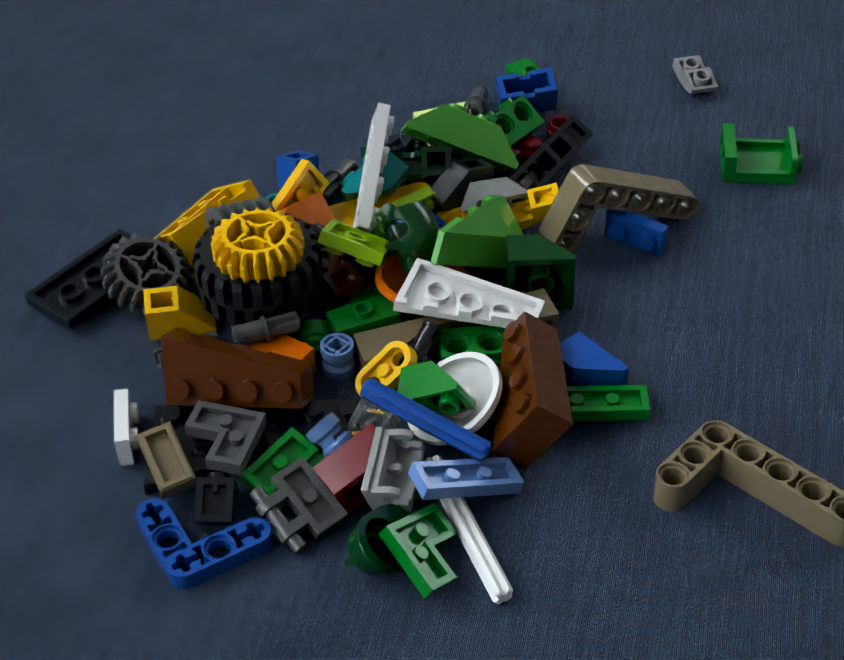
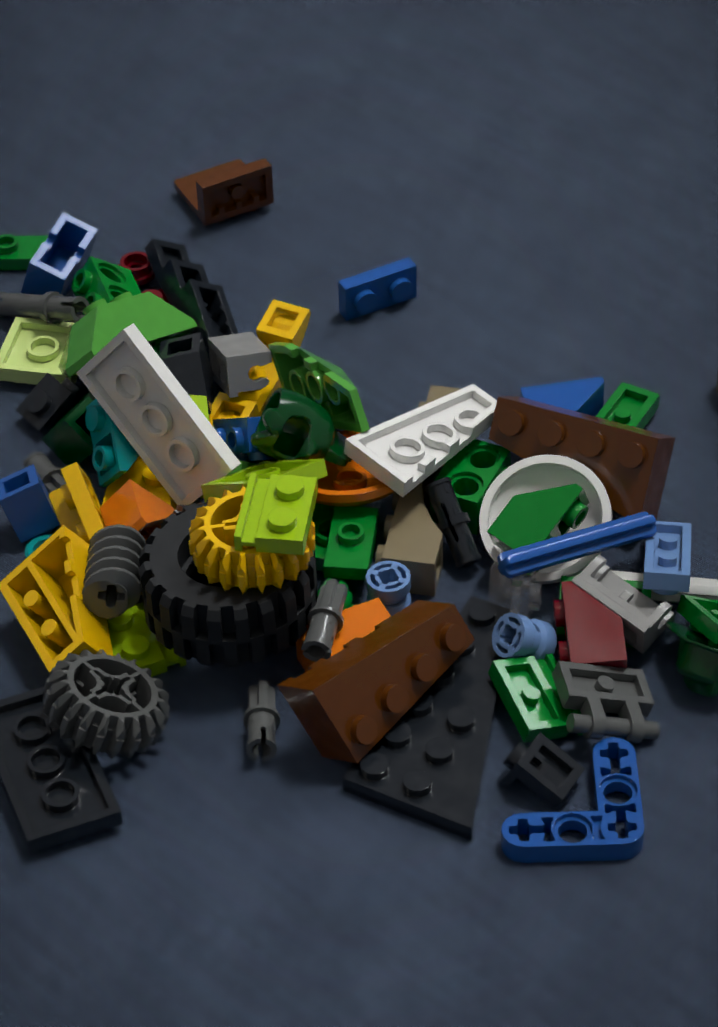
camera: 60 degrees left, 0 degrees up
(125, 417) = (362, 814): white plate -> none
(166, 459) = (455, 788): dark tan tile -> none
(175, 308) = (199, 708): yellow slope -> none
(233, 433) = (465, 705): dark grey plate -> none
(263, 236) = (276, 514): none -> lime plate
(385, 365) = (463, 555): yellow plate -> none
(539, 264) = (399, 373): dark green slope -> none
(594, 187) = (335, 274): dark tan beam -> none
(668, 128) = (227, 189): none -> reddish brown bracket
(694, 75) = (151, 136): light grey slope -> none
(759, 159) = (333, 154): green panel -> none

